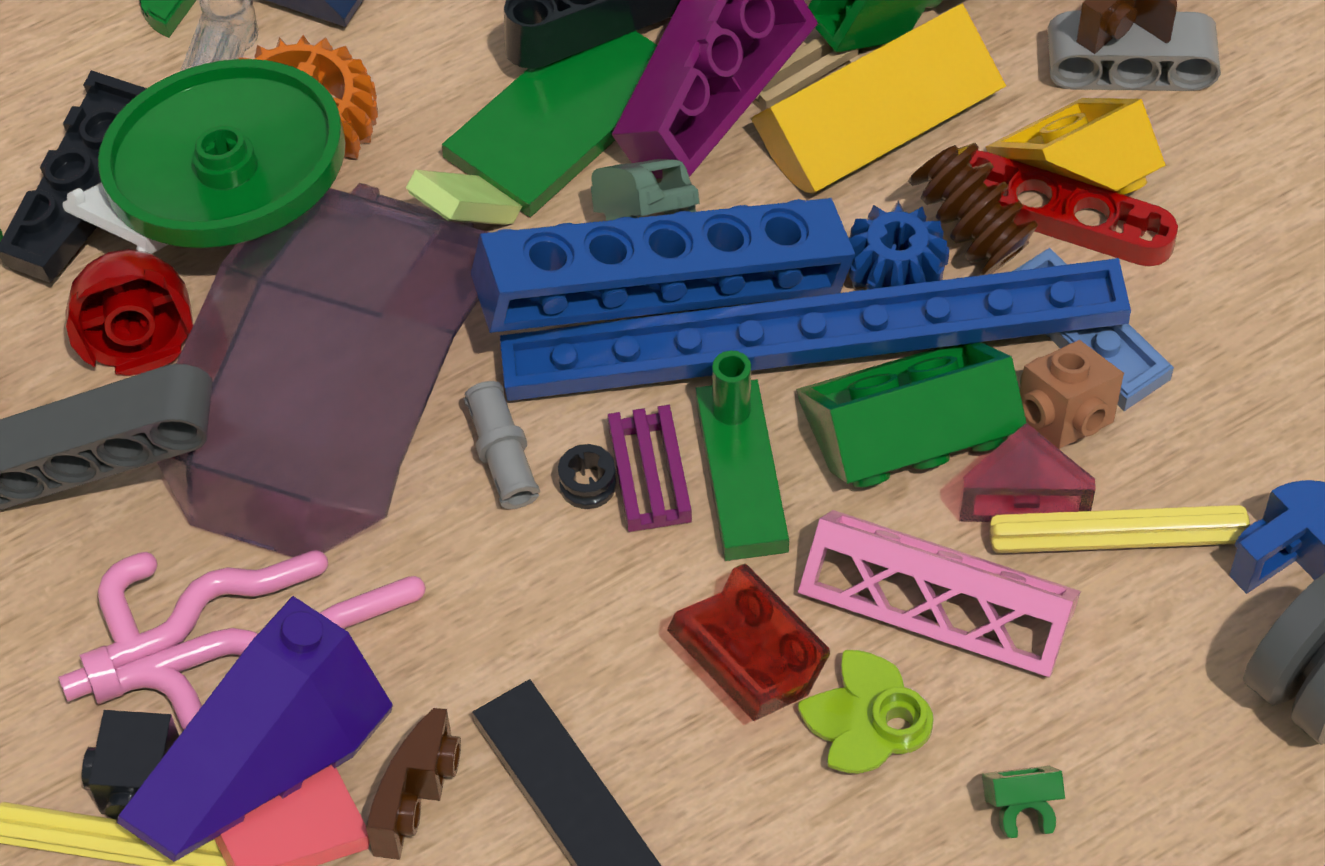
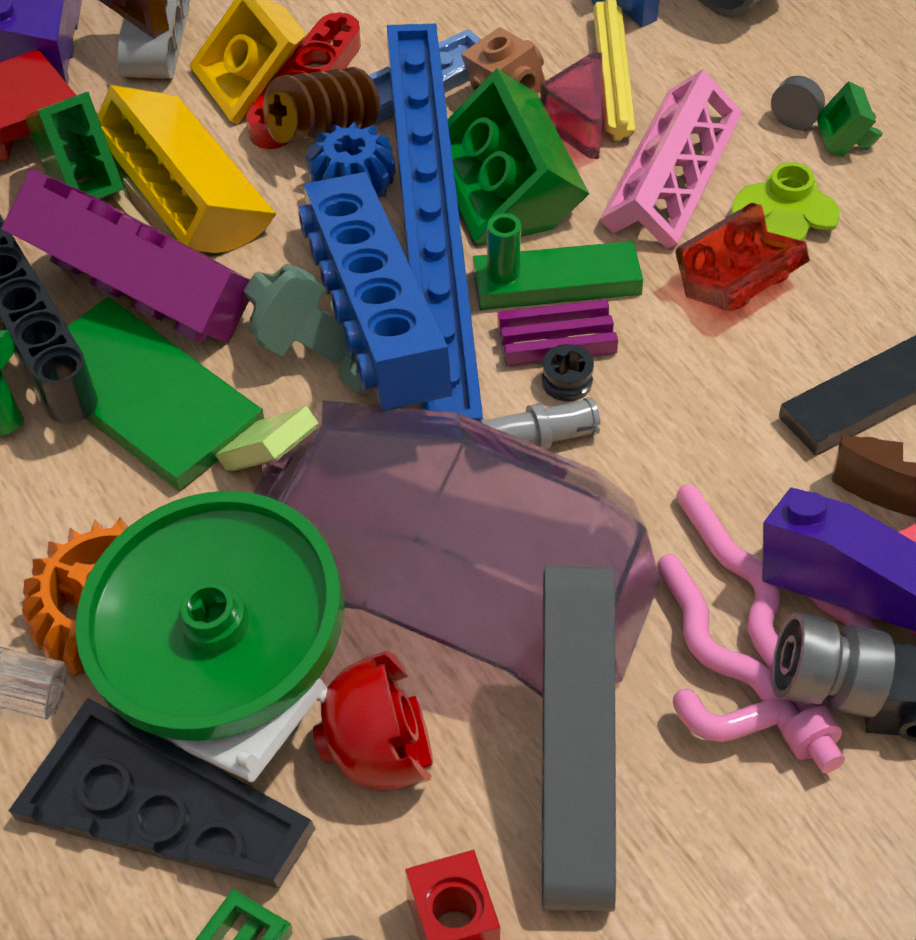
camera: 90 degrees left, 5 degrees down
(137, 660) = (844, 667): none -> flat silver wheel
(1058, 734) = (798, 102): none -> dark grey tile

